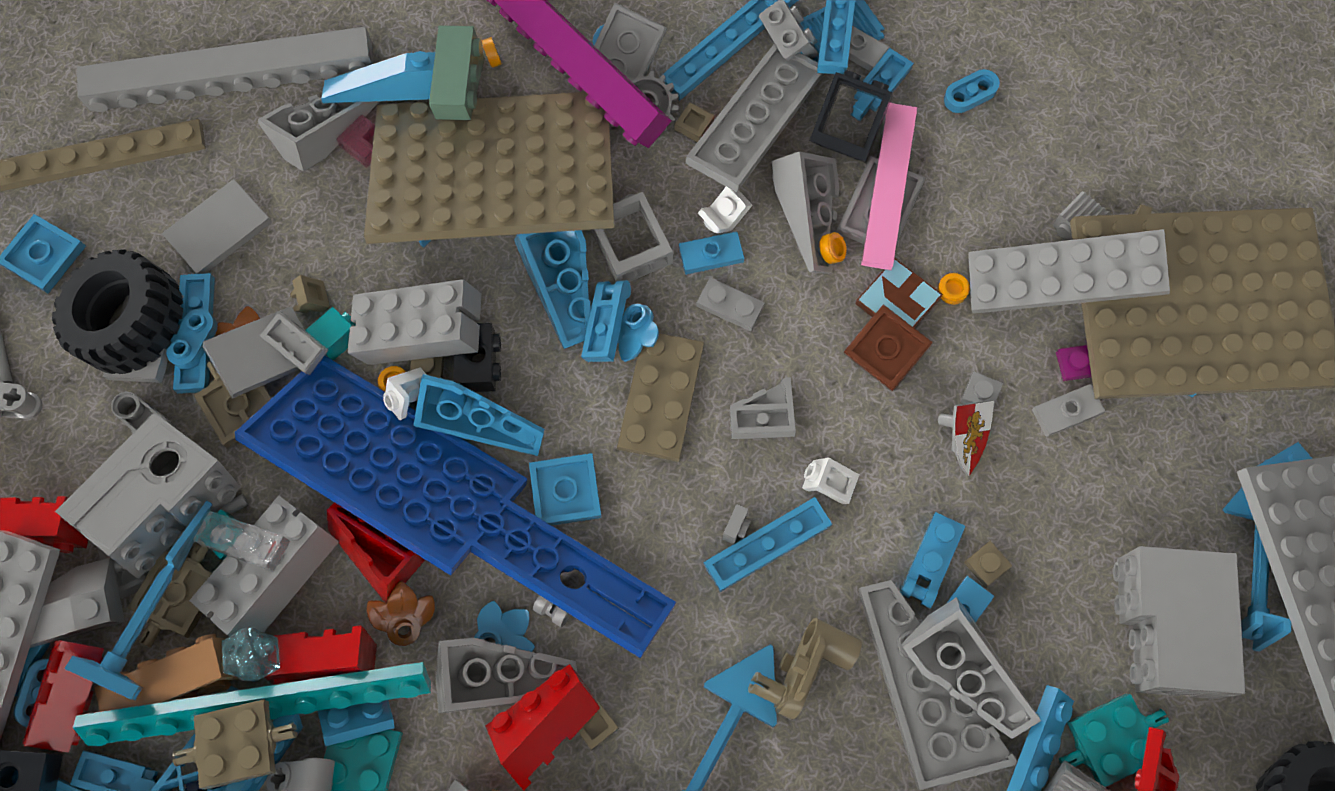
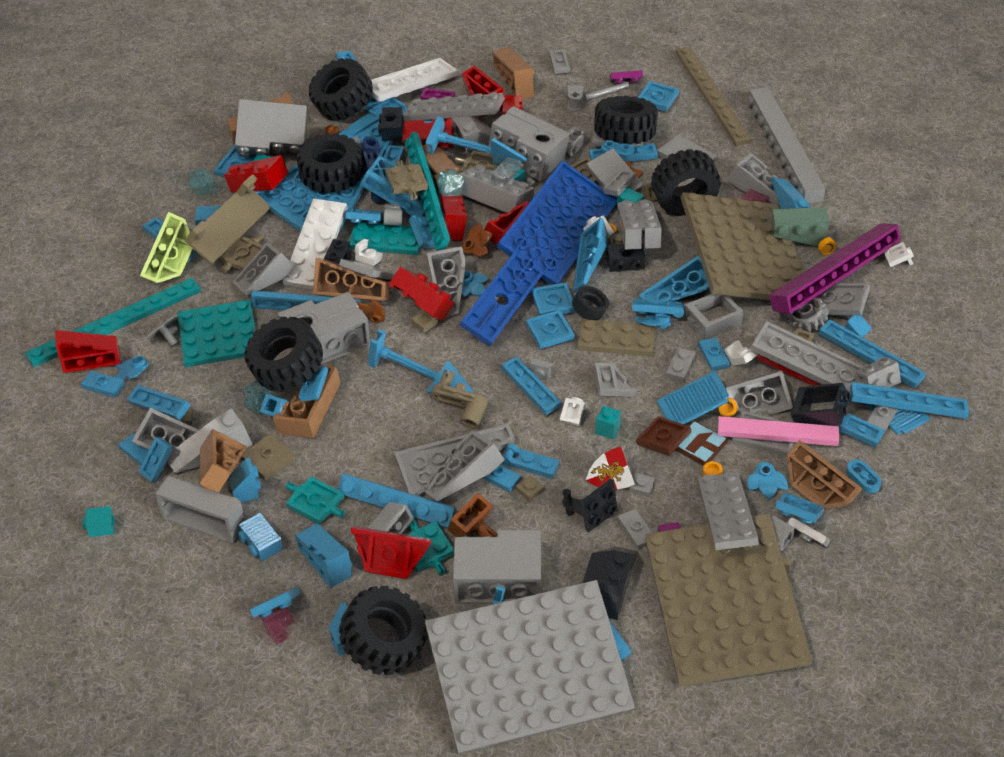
camera: 85 degrees right, 25 degrees down
(331, 227) = (679, 168): none -> black tyre
(589, 408) = (595, 296): none -> black tyre
(636, 502) = (549, 329): none -> dark azure plate
(673, 46) = (858, 325): none -> dark azure slope
(821, 292) = (694, 399): none -> dark azure window
(863, 426) = (608, 422): none -> teal brick
(975, 217) = (767, 482): none -> dark azure plate
(990, 140) = (819, 479): none -> medium nougat wedge
(1042, 179) = (793, 505): none -> dark azure plate
(1055, 473) = (594, 507): none -> black plate
(1073, 661) = (472, 518): none -> dark orange brick
(1079, 177) = (808, 533): none -> light grey plate
(1166, 455) = (612, 571): none -> black wedge

